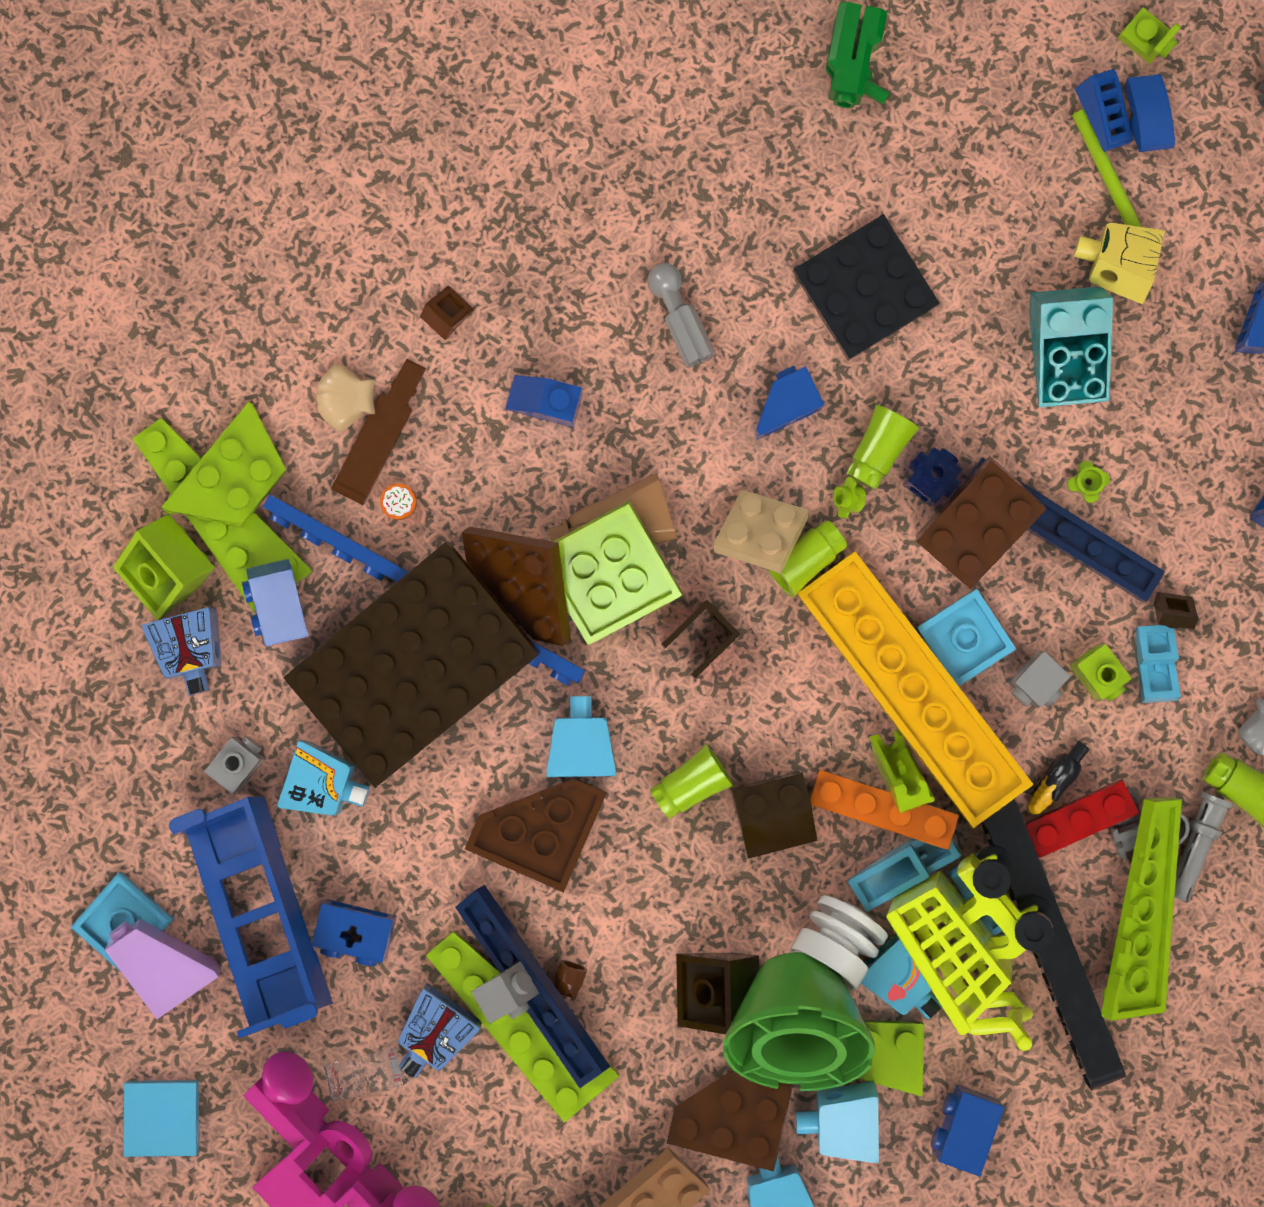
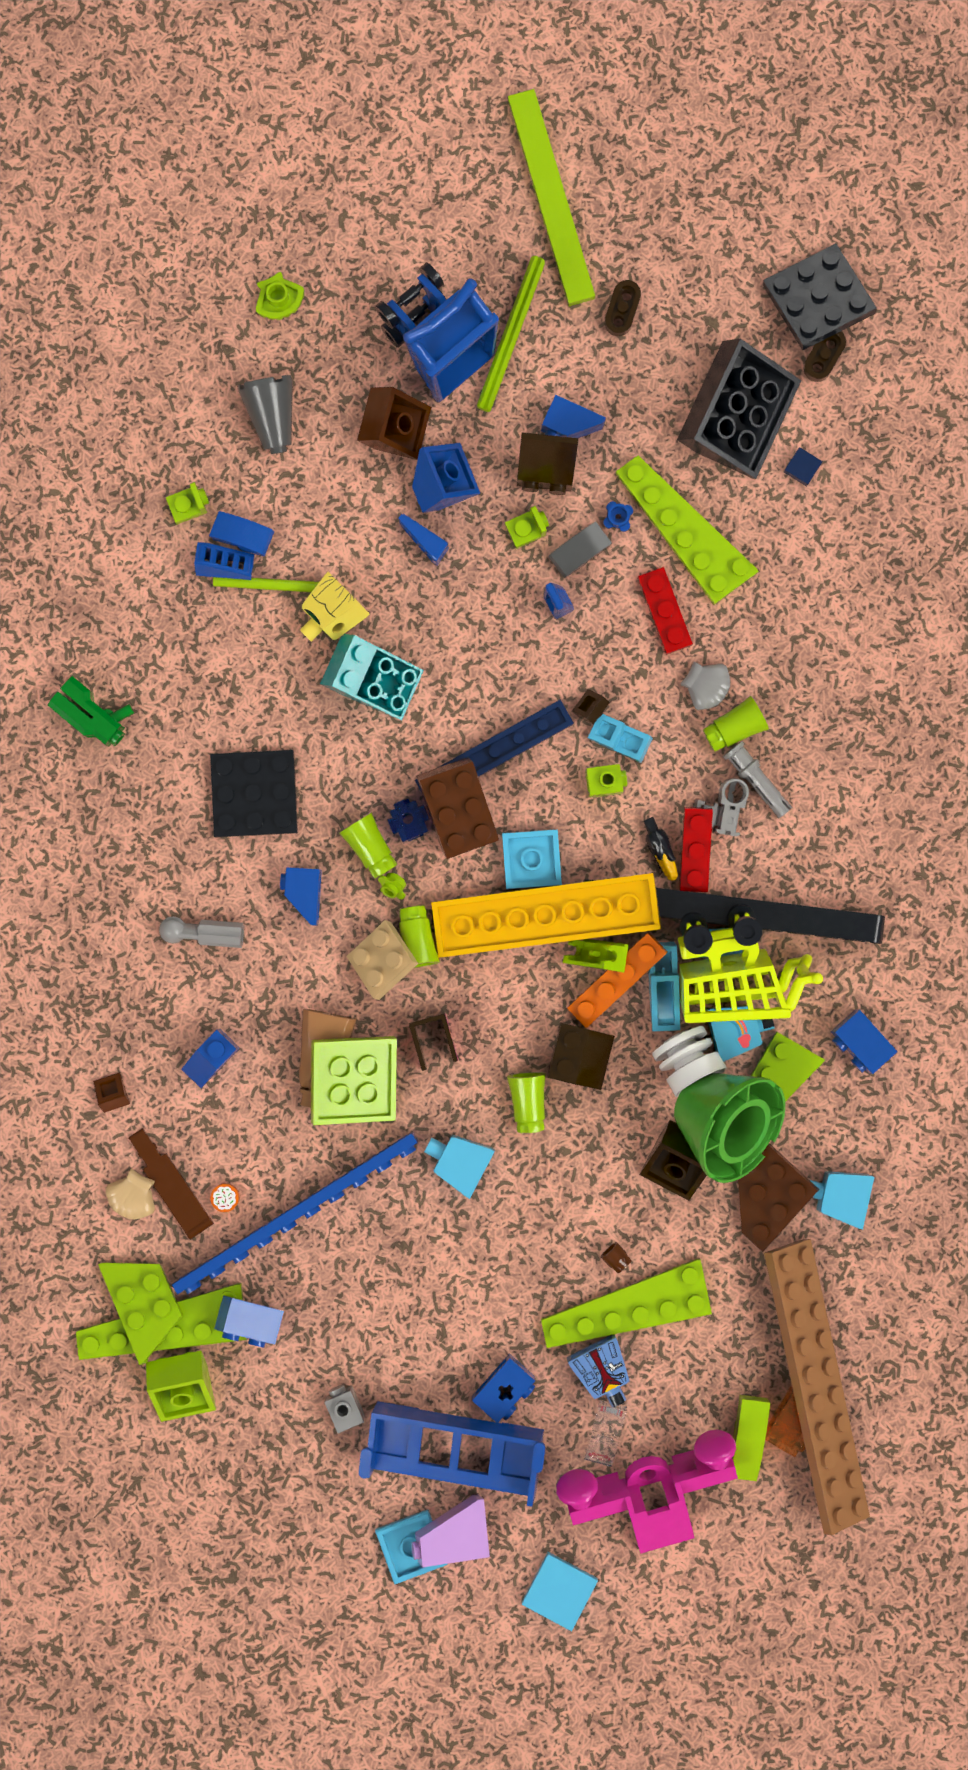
camera: 65 degrees left, 0 degrees up
(186, 646) = (245, 1399): medium blue torso -> none
(320, 782) = (389, 1356): medium azure torso -> none
(411, 664) = (342, 1250): dark brown plate -> none
(506, 993) = (601, 1306): light grey brick -> none
(524, 578) = (326, 1140): reddish brown plate -> none
(540, 832) = (505, 1223): reddish brown plate -> none
(548, 1007) = (606, 1286): dark blue plate -> none
(844, 1122) = (813, 1123): medium azure torso -> none
(1039, 681) = (588, 826): light grey brick -> none
(1097, 476) = (463, 713): lime plate -> none
(1143, 939) = (795, 850): lime wing -> none

